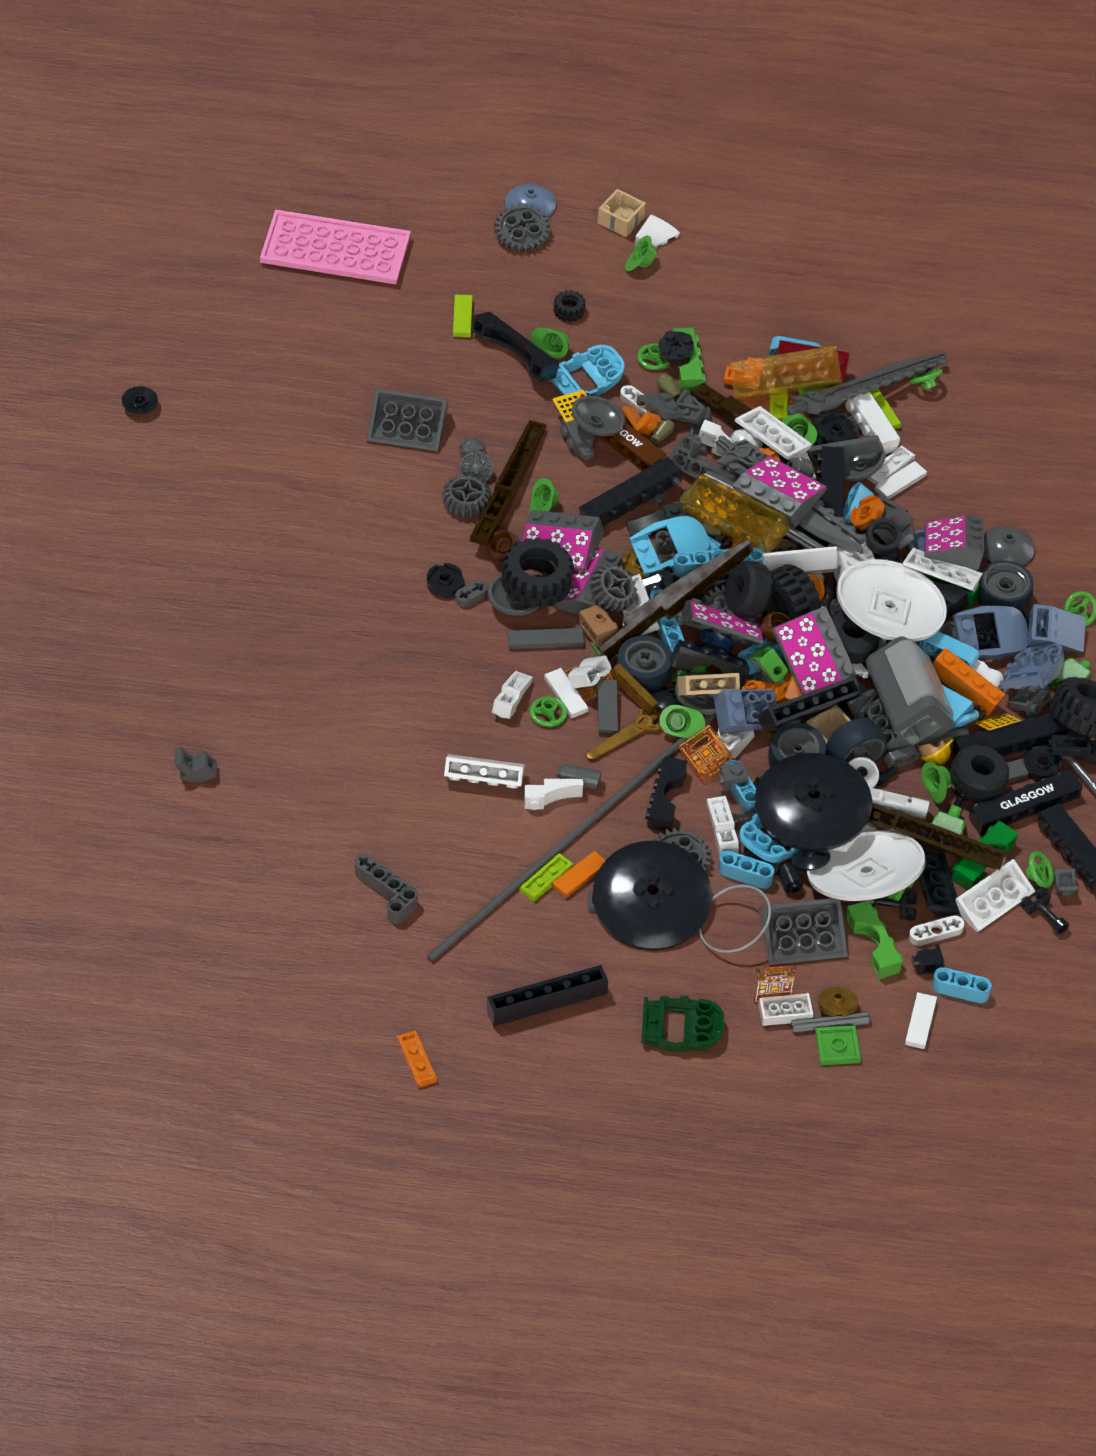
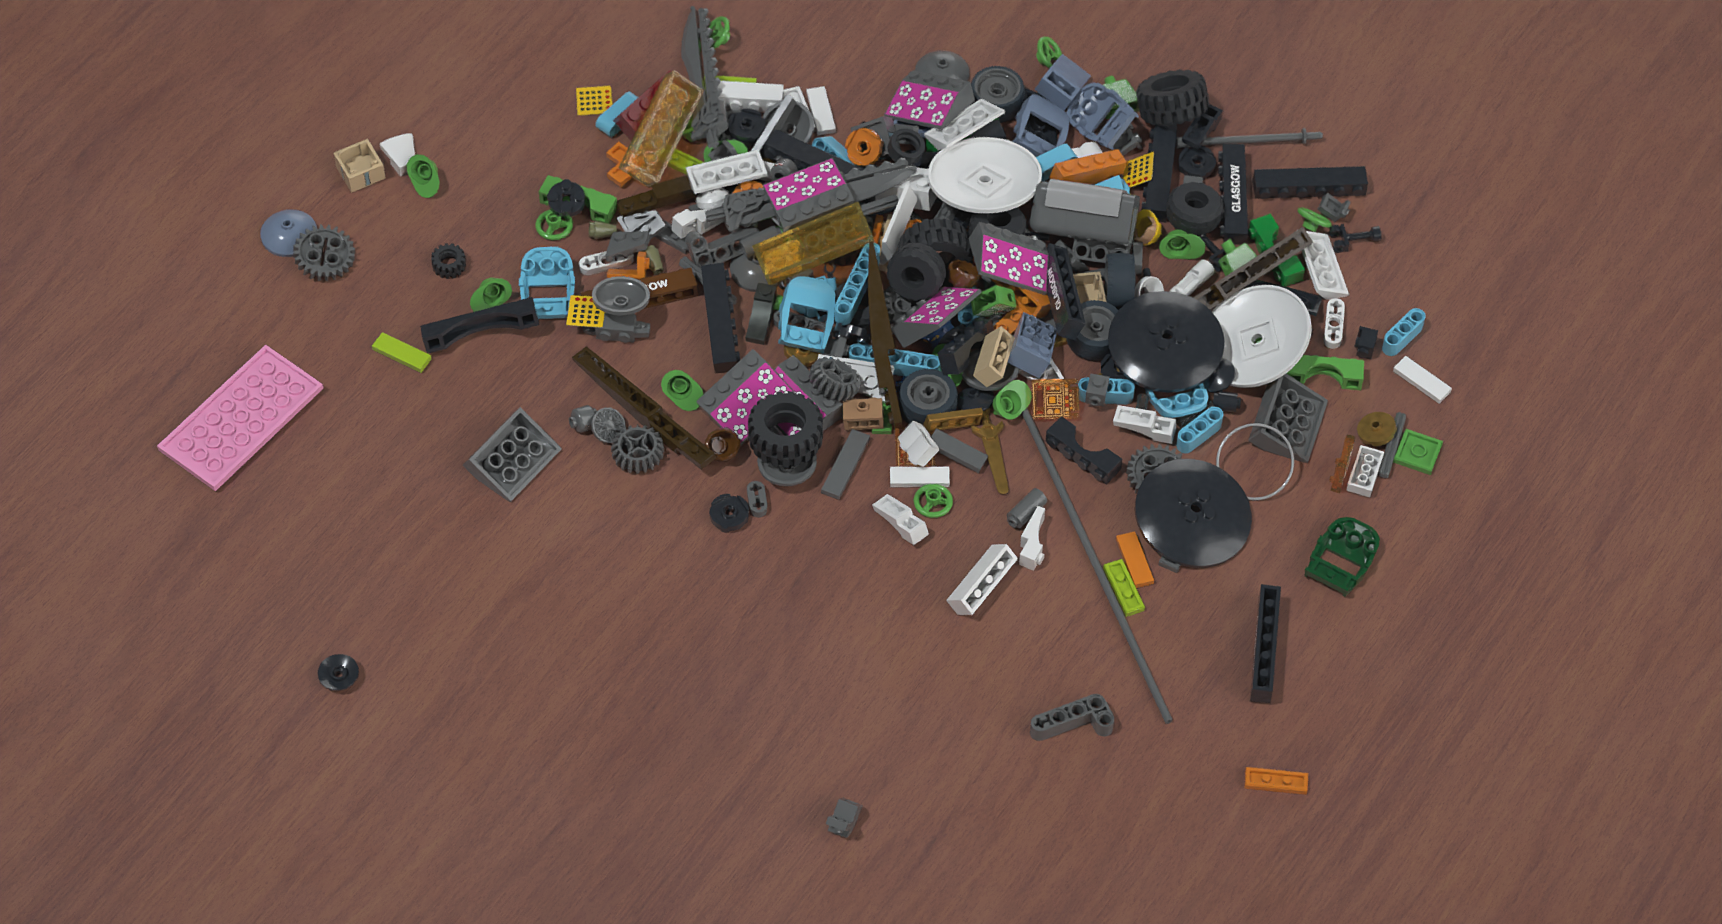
camera: 60 degrees left, 5 degrees up
(798, 425) = (723, 151): none -> dark grey tile
(801, 329) = (593, 100): none -> yellow sticker

